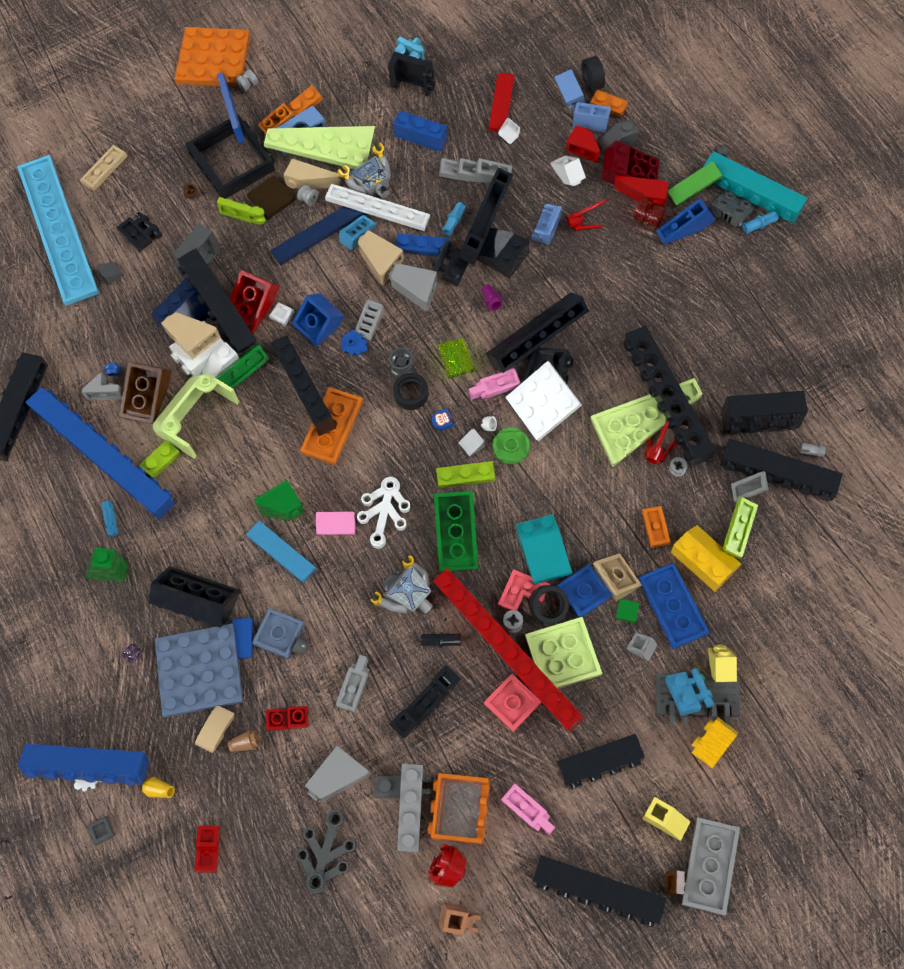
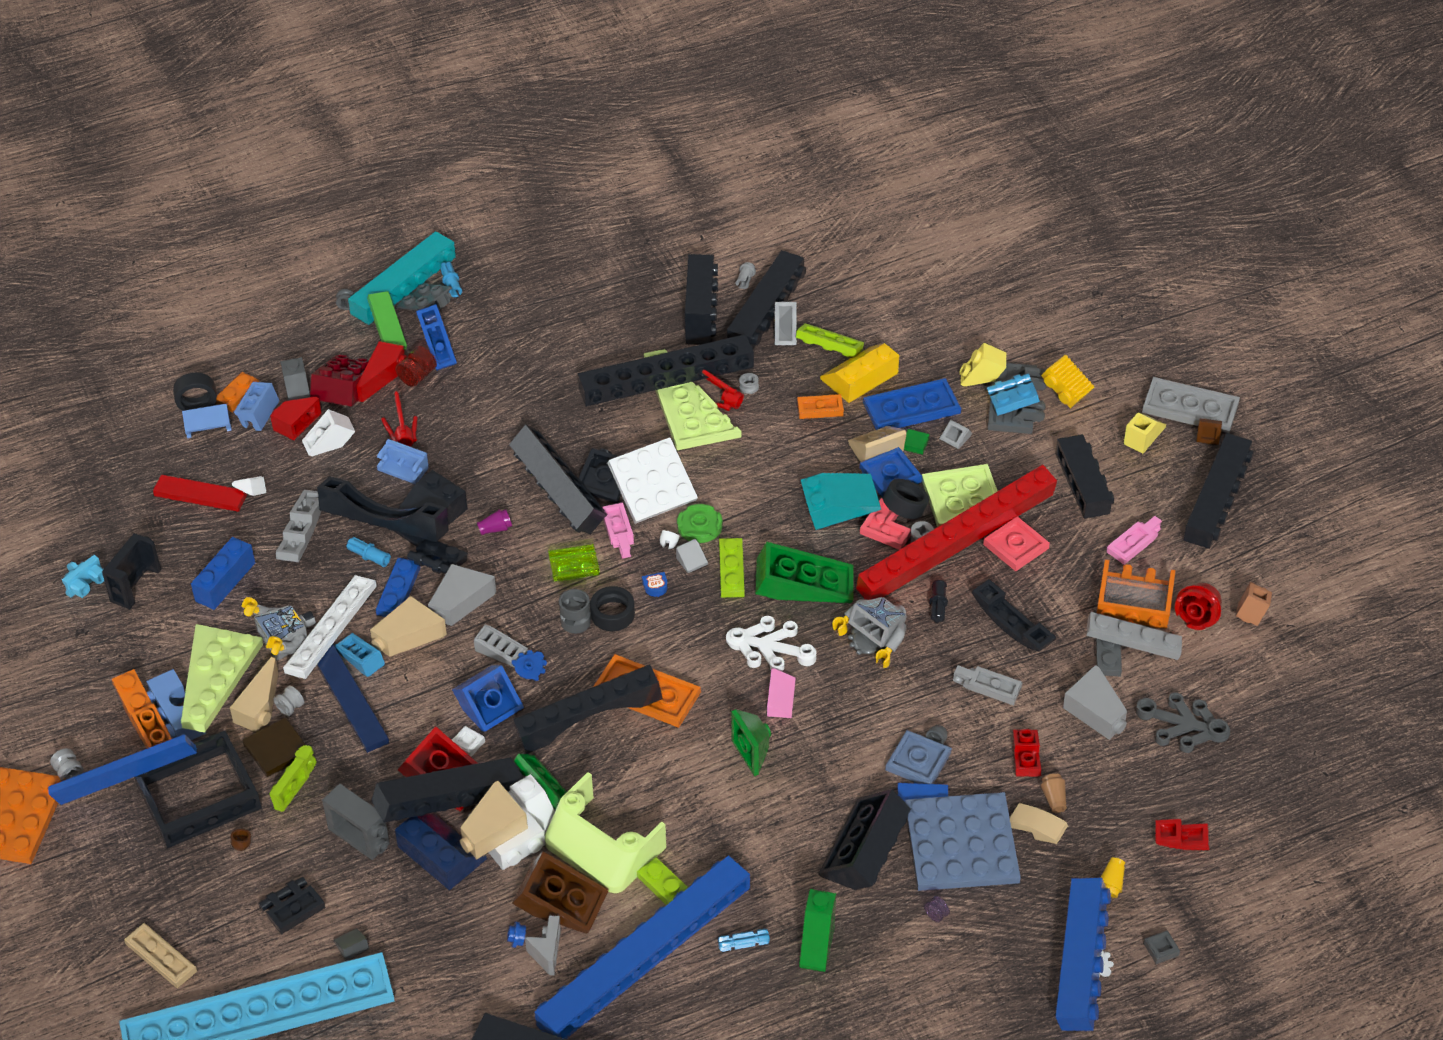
camera: 90 degrees left, 20 degrees down
(281, 551) = (811, 752): dark azure tile -> none

